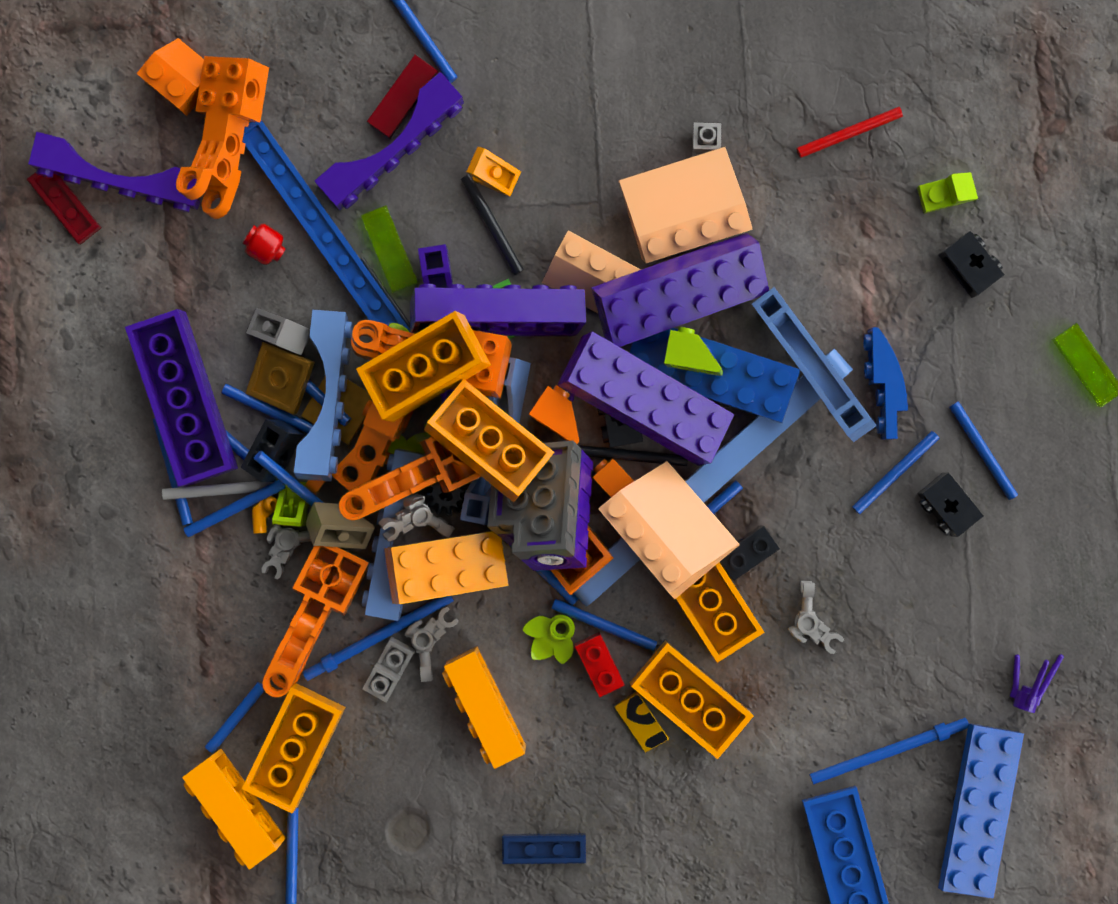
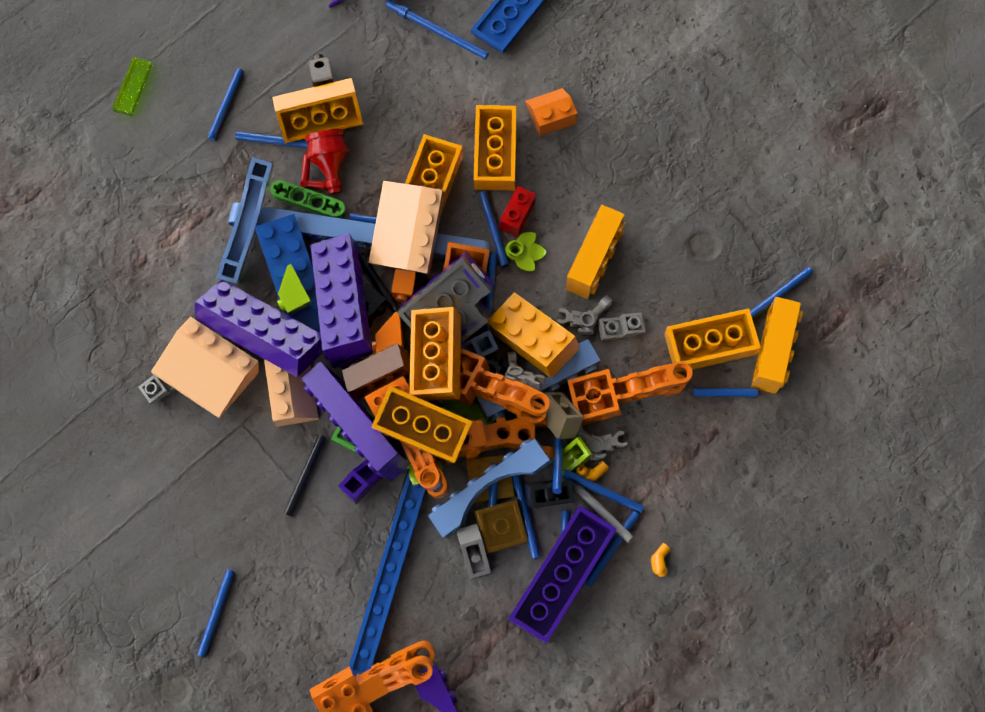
camera: 130 degrees left, 15 degrees down
(123, 505) = (658, 562): none -> light orange arm
(264, 244) = (425, 603): red head -> none
(330, 662) = (645, 362): blue bar -> none
(347, 179) = (255, 568): dark purple arch -> none
(389, 249) = (368, 526): clear neon green tile -> none
(401, 97) = (265, 593): dark red tile -> none
(493, 172) = (271, 498): light orange slope -> none
(528, 372) = (376, 371): none -> brick
(543, 848) = (648, 165): dark blue tile -> none
(641, 722) = (531, 167): slope -> none
(689, 797) = (552, 111): none -> orange slope
(752, 550) = (377, 174): black brick -> none
(795, 454) = (309, 197): none -> bright green beam
(808, 623) = (400, 121): light grey piece -> none
(831, 513) = (327, 152): none -> red piece
(849, 132) = (89, 312): red bar -> none
(885, 371) = (220, 185): blue slope -> none
(887, 540) = (317, 110): none -> light orange brick
(926, 577) = (320, 70): none -> torso
(947, 192) = (86, 232): lime slope -> none
(961, 253) = (119, 186): black brick -> none
(963, 513) = (269, 87): black brick -> none

